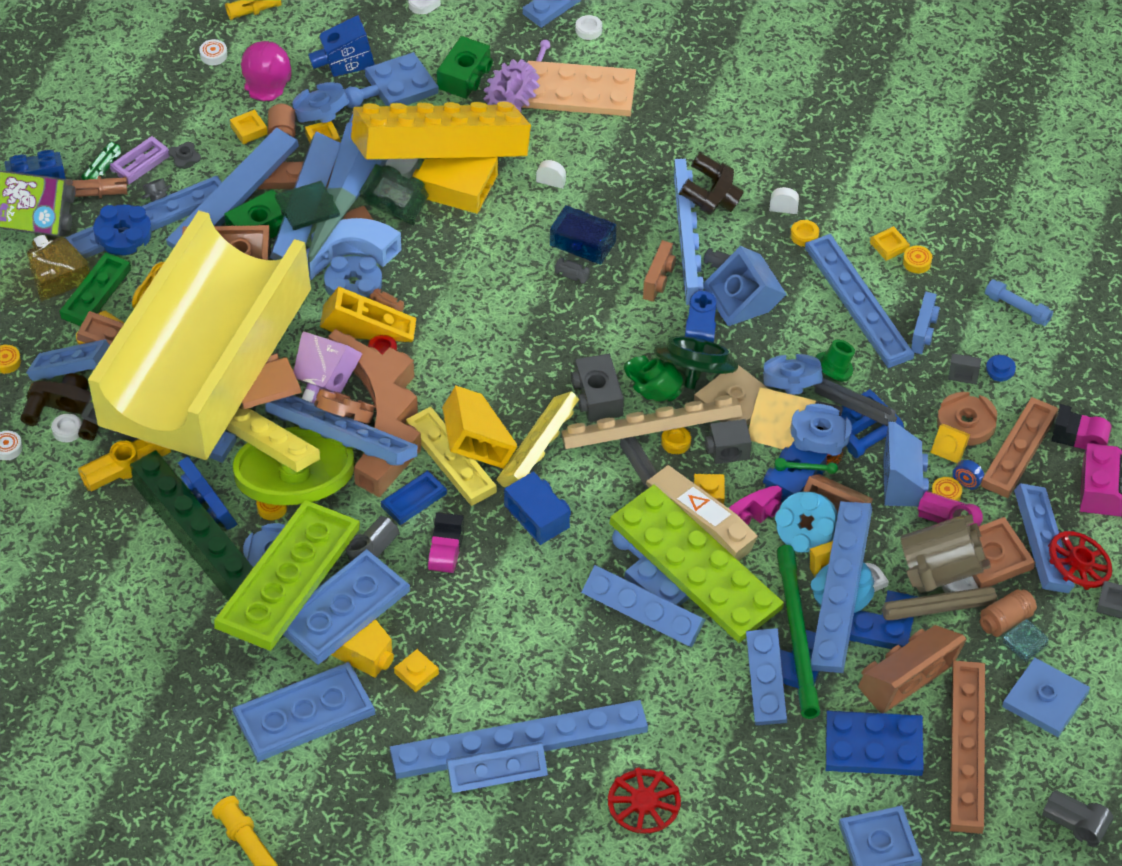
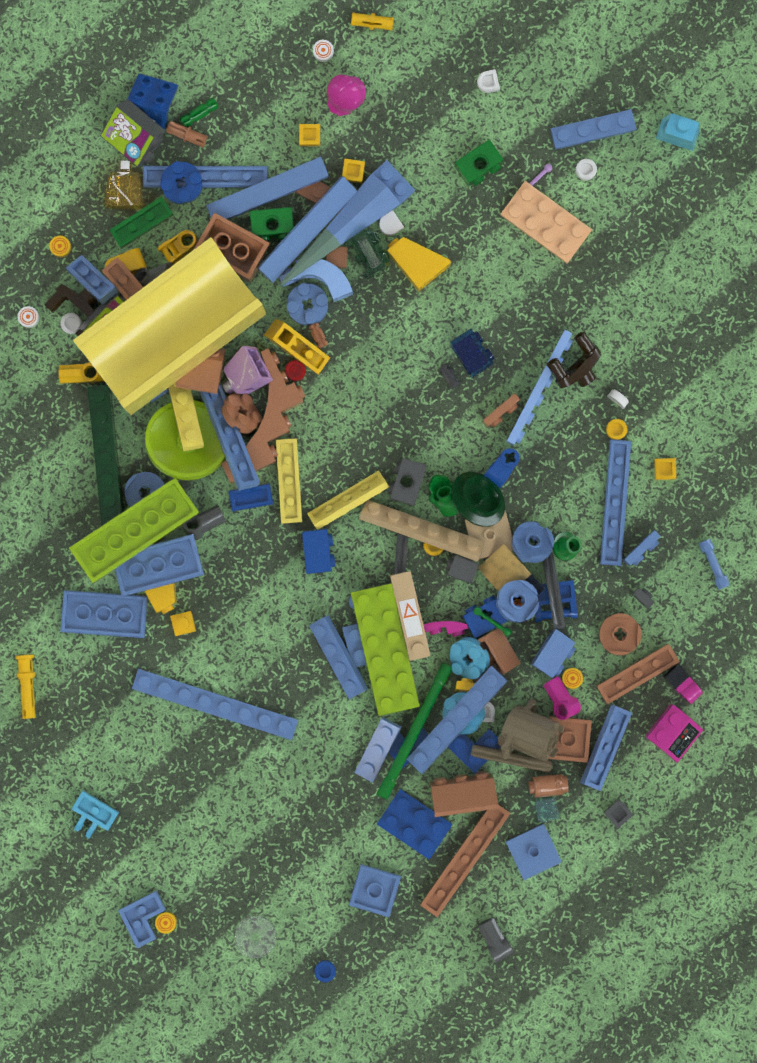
camera: 30 degrees right, 35 degrees up
(143, 161) = (227, 130): lavender tile -> none
(155, 189) = (221, 158): dark grey plate -> none
(187, 160) = (259, 141): dark grey plate -> none
(205, 493) = (125, 425): blue plate -> none
(283, 118) = (332, 145): nougat brick -> none
(307, 205) = (301, 241): clear green piece -> none
(320, 103) = (368, 153): medium blue plate -> none
(344, 48) = (405, 105): torso -> none
(395, 81) = (430, 148): medium blue plate -> none
(440, 131) = (421, 226): yellow brick -> none
(446, 542) = (247, 547): leg -> none
(476, 429) = (312, 473): yellow slope -> none
(496, 767) = (189, 718): medium blue plate -> none
(512, 84) = (497, 203): lavender gear -> none
(551, 174) = (482, 289): white tile -> none
(644, 800) = (261, 786): red wheel -> none
(712, 484) = (430, 593): yellow plate -> none
(716, 258) = (548, 422): dark grey piece -> none
(744, 287) = (546, 455): medium blue slope -> none
(917, 259) = (674, 492): yellow tile -> none
(950, 443) = (596, 648): yellow plate -> none
(968, 474) = (592, 676): blue tile -> none
(1000, 368) = (668, 607): blue plate -> none
(1080, 559) = (616, 775): red wheel -> none

